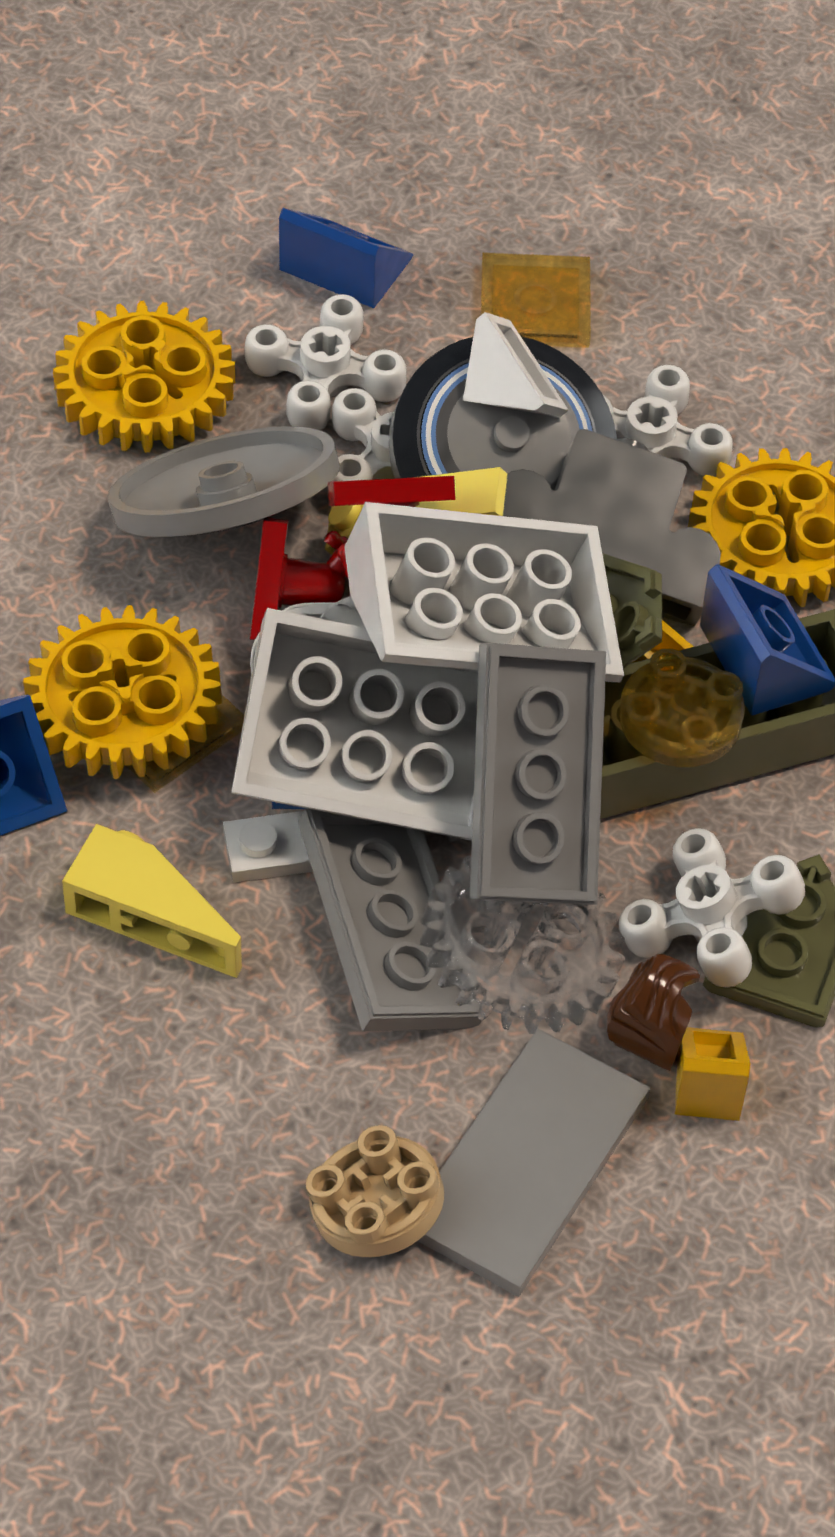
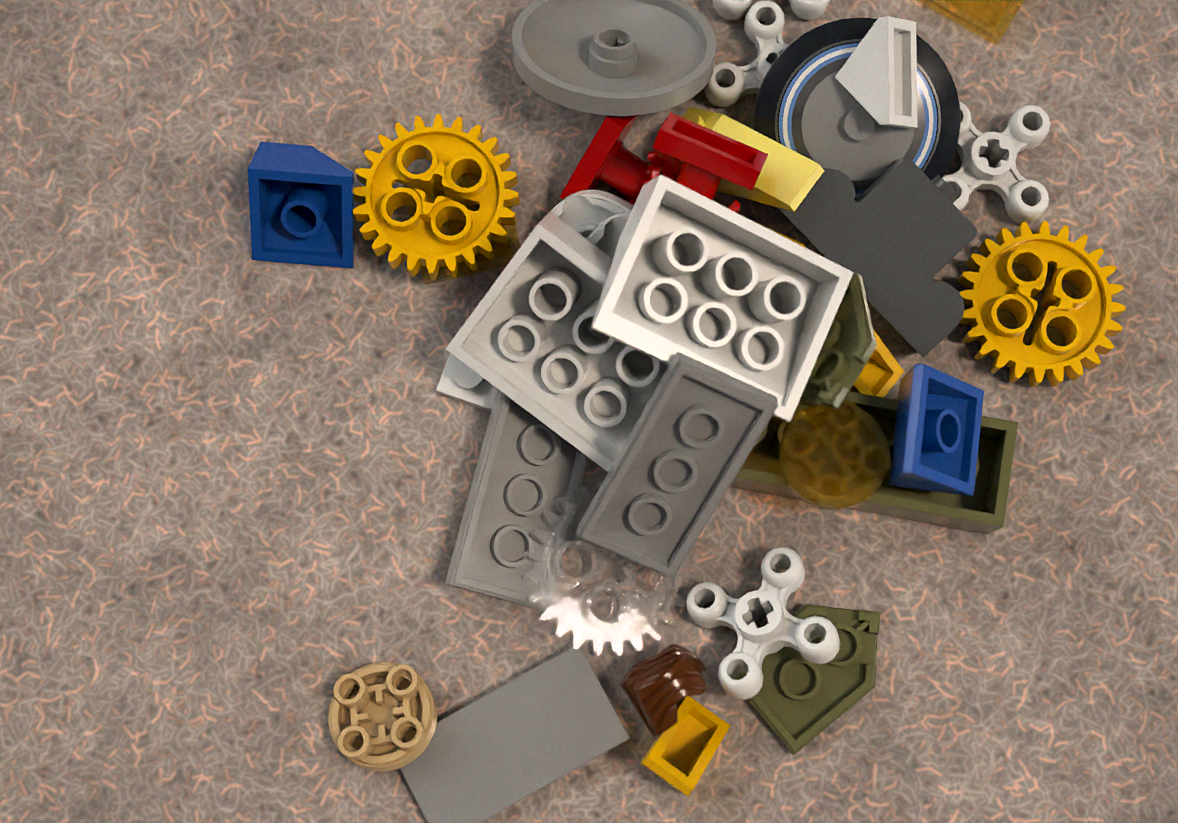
camera: 30 degrees right, 25 degrees up
(140, 894) = (355, 370): light yellow slope -> none

